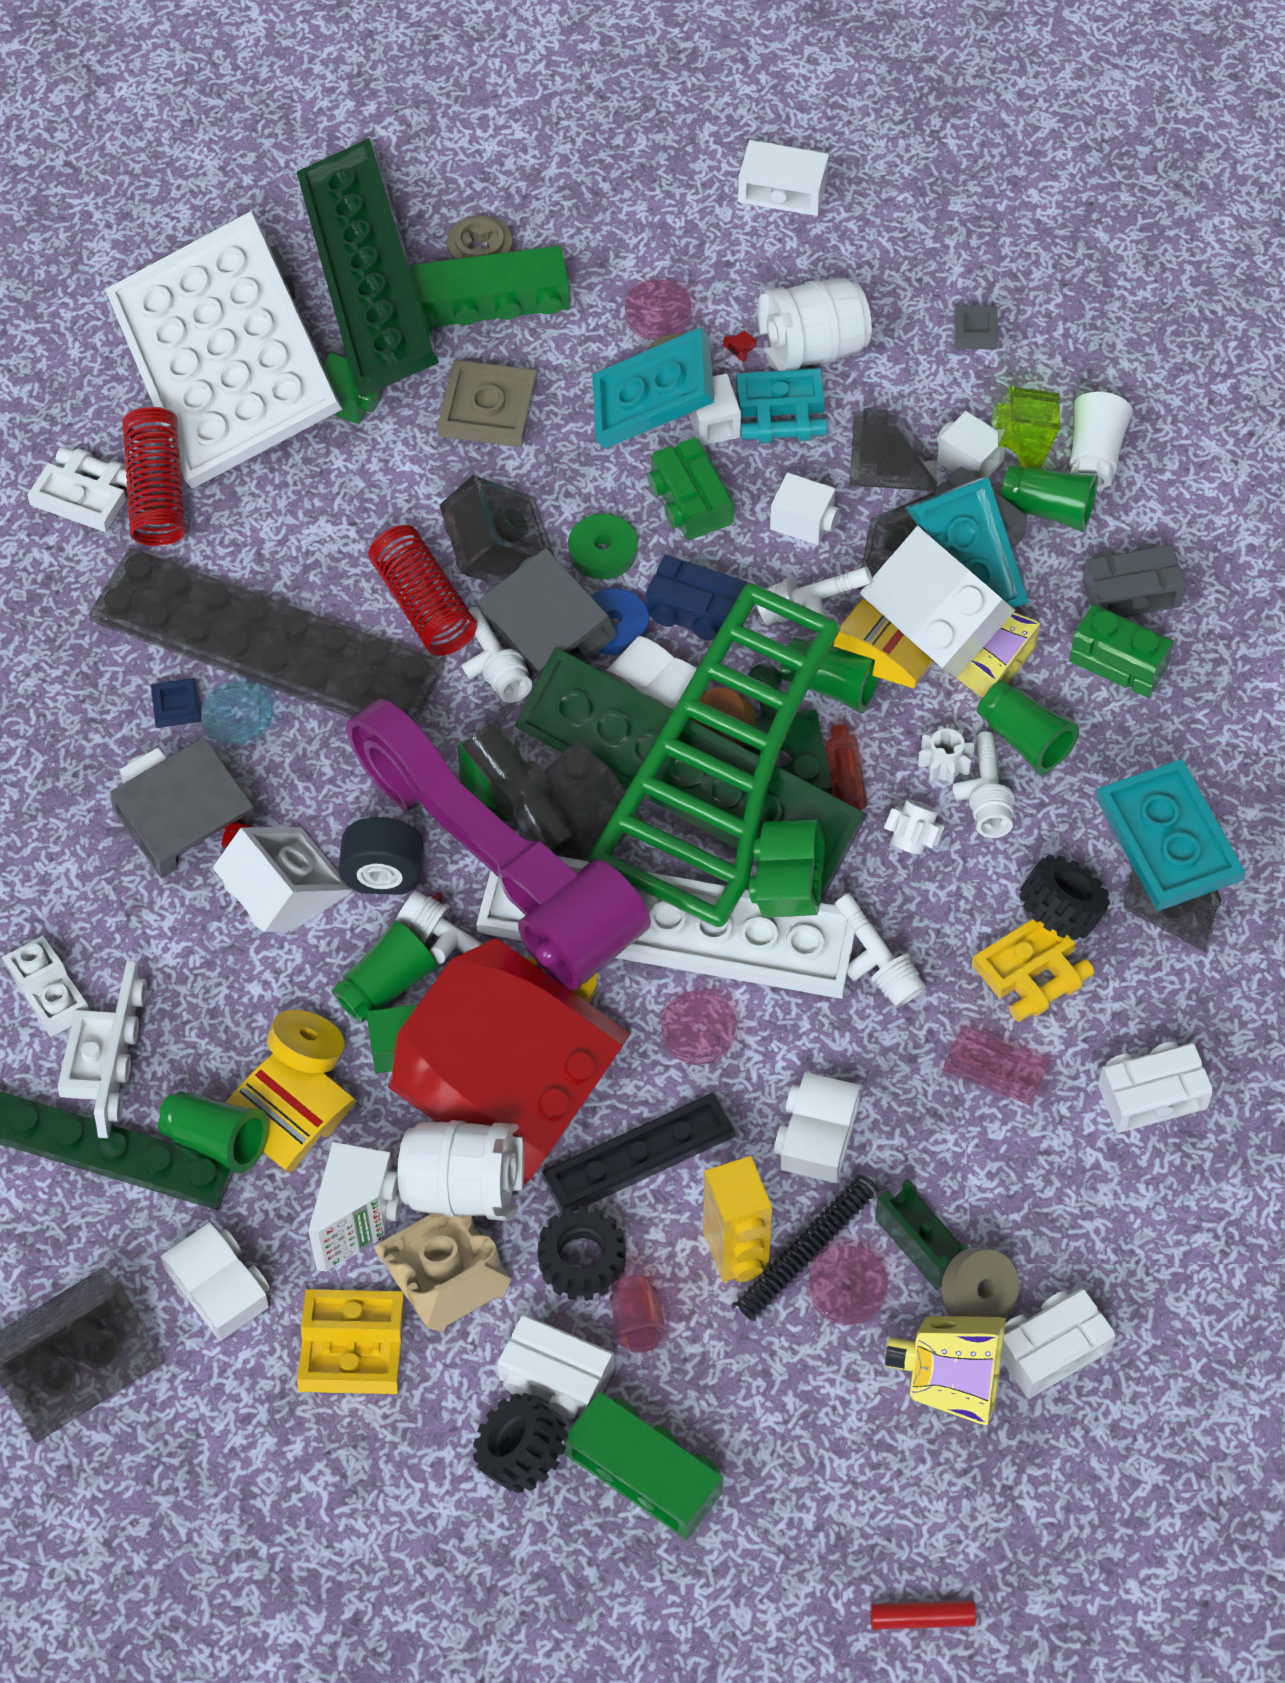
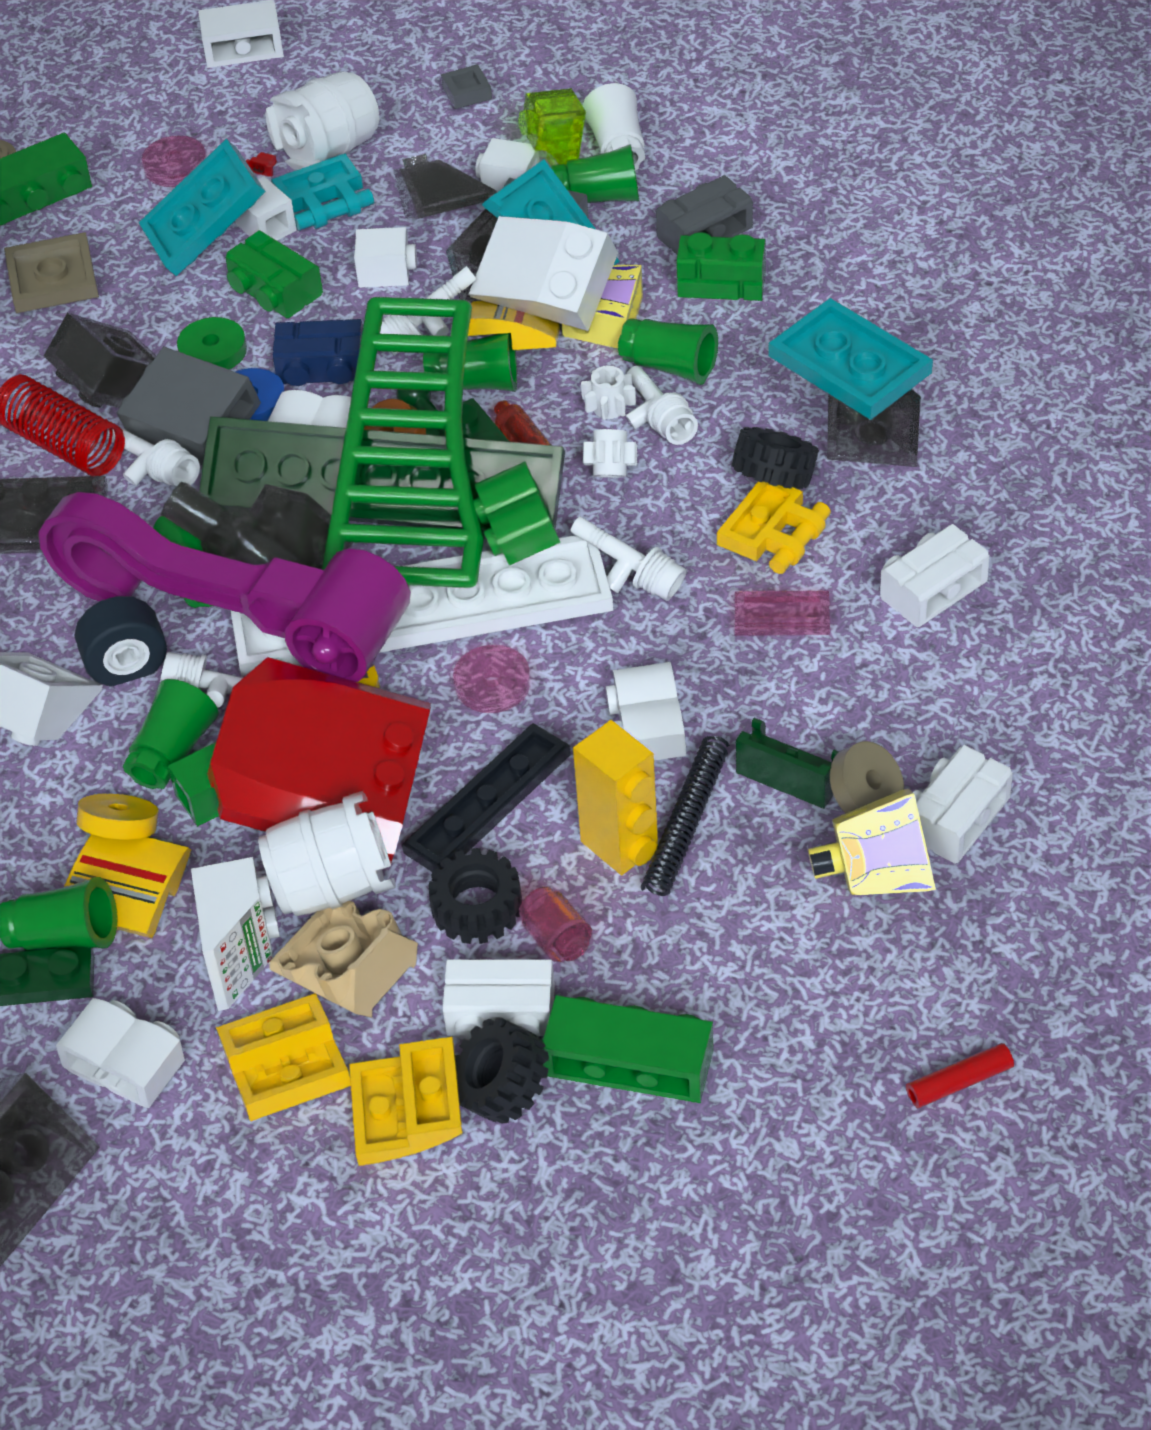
camera: 20 degrees left, 10 degrees down
(432, 1433) = (405, 1101): none -> yellow slope
(847, 1306) = (736, 850): clear pink piece -> none

